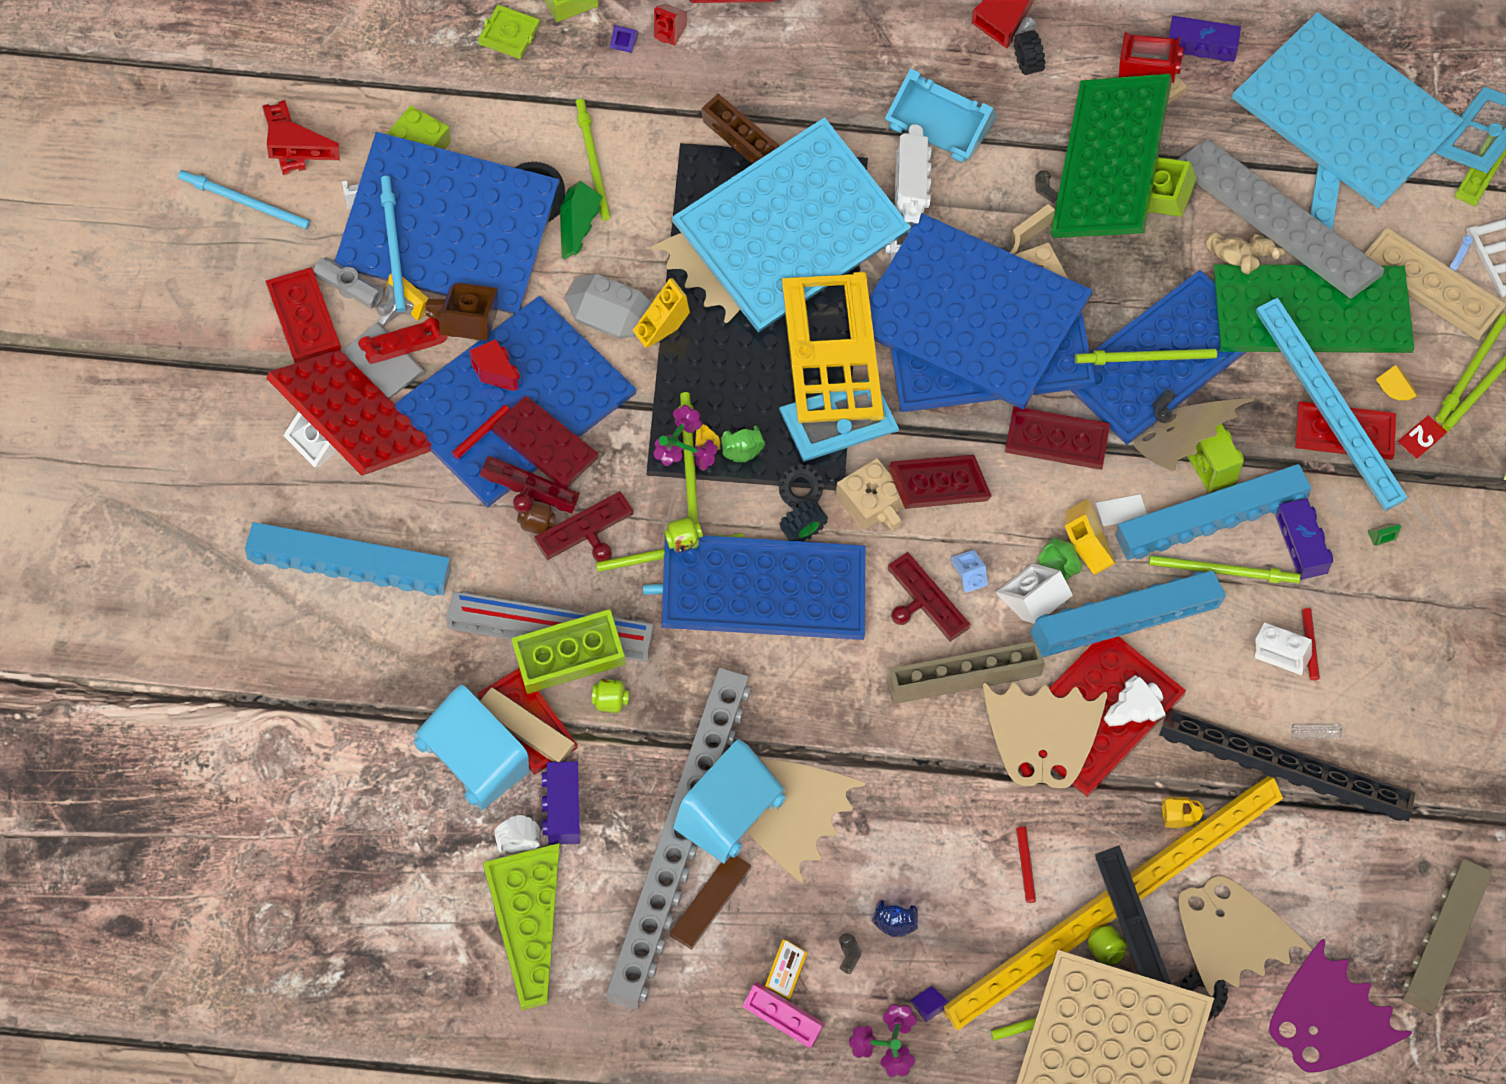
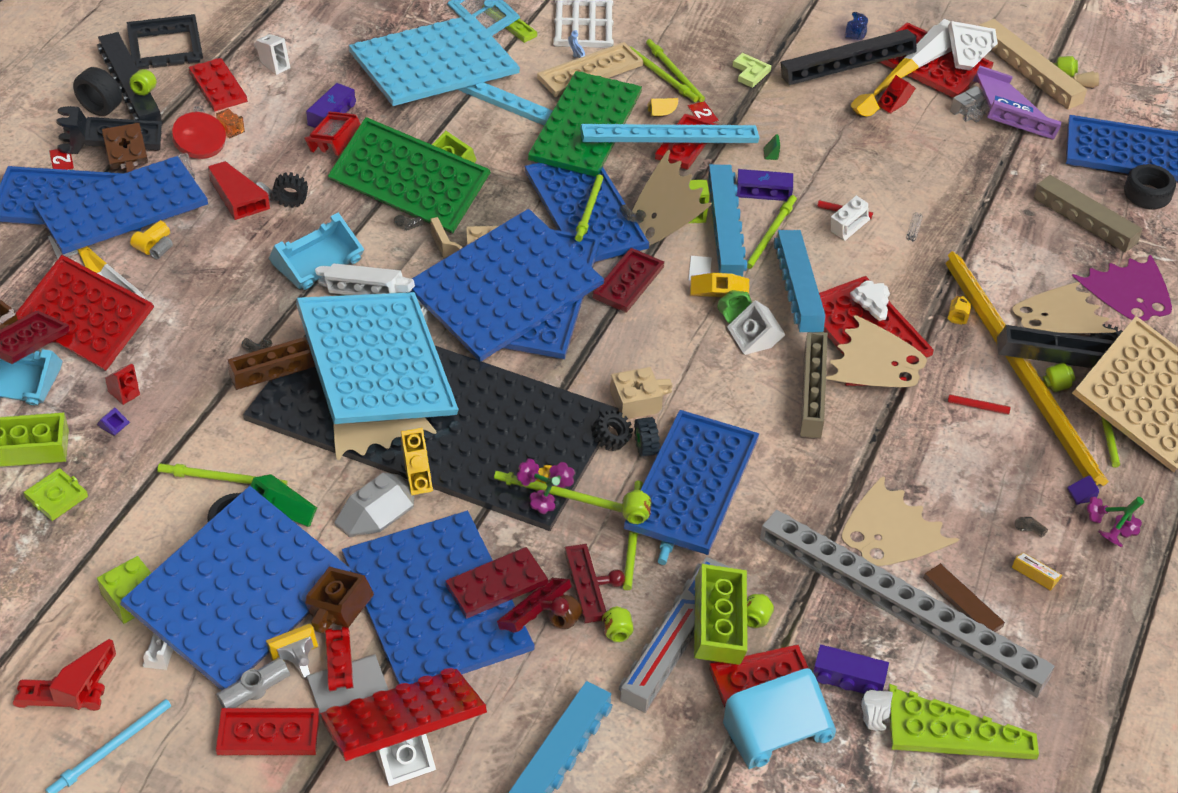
camera: 70 degrees left, 15 degrees down
(388, 202) = (197, 614): medium azure bar -> none
(479, 433) = (464, 623): red bar -> none
(493, 367) = (407, 593): red slope -> none
(527, 727) = (790, 661): tan tile -> none
(541, 570) = (617, 624): none -> lime head
(728, 802) = (905, 555): medium azure windscreen -> none
(742, 445) = (562, 448): bright green hair -> none
(781, 118) = (252, 346): none -> clear smoke arm
(783, 1015) = (1078, 579): plate -> none
(822, 438) = (560, 390): medium azure door -> none
(832, 353) = (504, 371): yellow door -> none
(895, 920) = (1011, 486): clear blue hair -> none
(927, 597) = (738, 390): dark red plate -> none
(939, 481) = (645, 347): dark red plate -> none
(971, 570) = (722, 357): light blue bracket -> none
(1241, 253) = (523, 138): tan piece -> none
(1282, 220) = (511, 111): light grey plate -> none
(1288, 764) = (942, 243): black plate -> none

